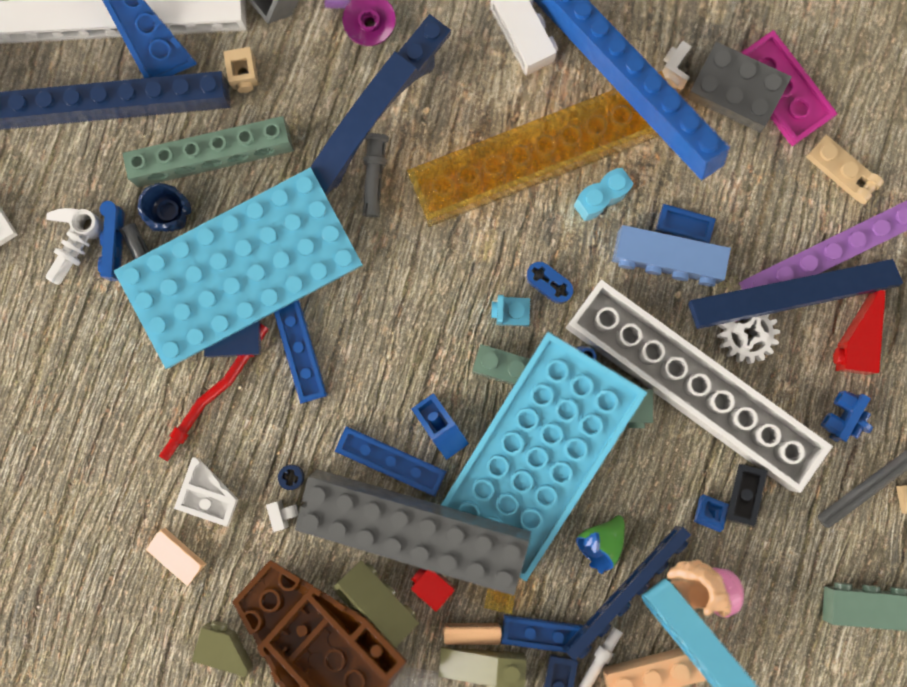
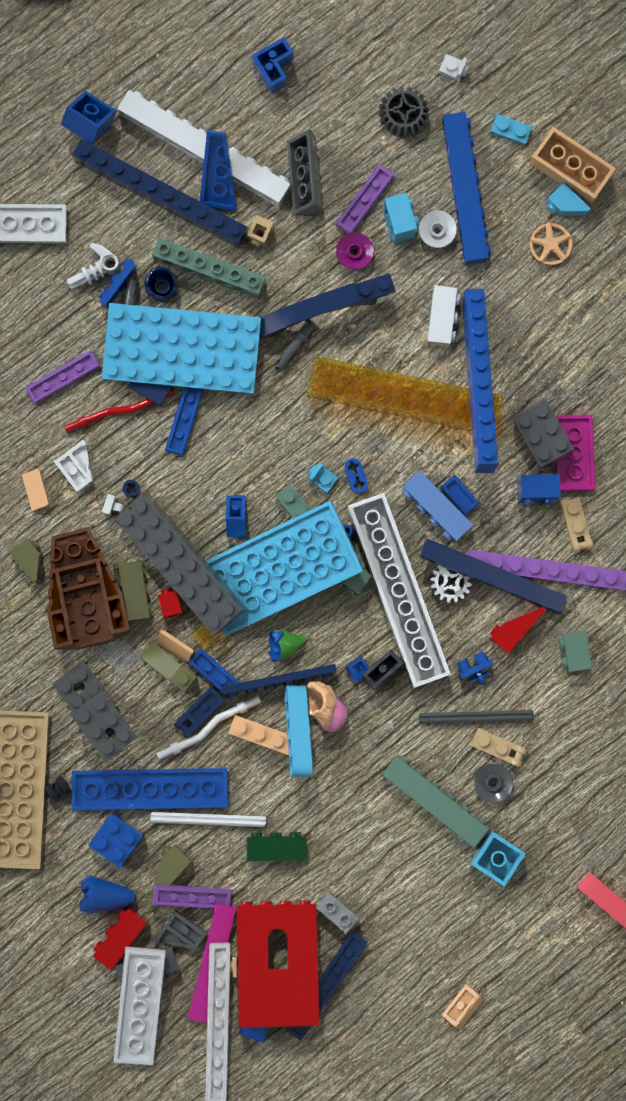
camera: 30 degrees right, 0 degrees up
(118, 398) = (62, 377): none -> medium lavender tile
(390, 461) = (194, 517): blue tile -> none
(598, 196) = (427, 445): medium azure brick -> none
(674, 58) = (519, 393): white bracket -> none
(778, 154) = (538, 488): none -> blue brick

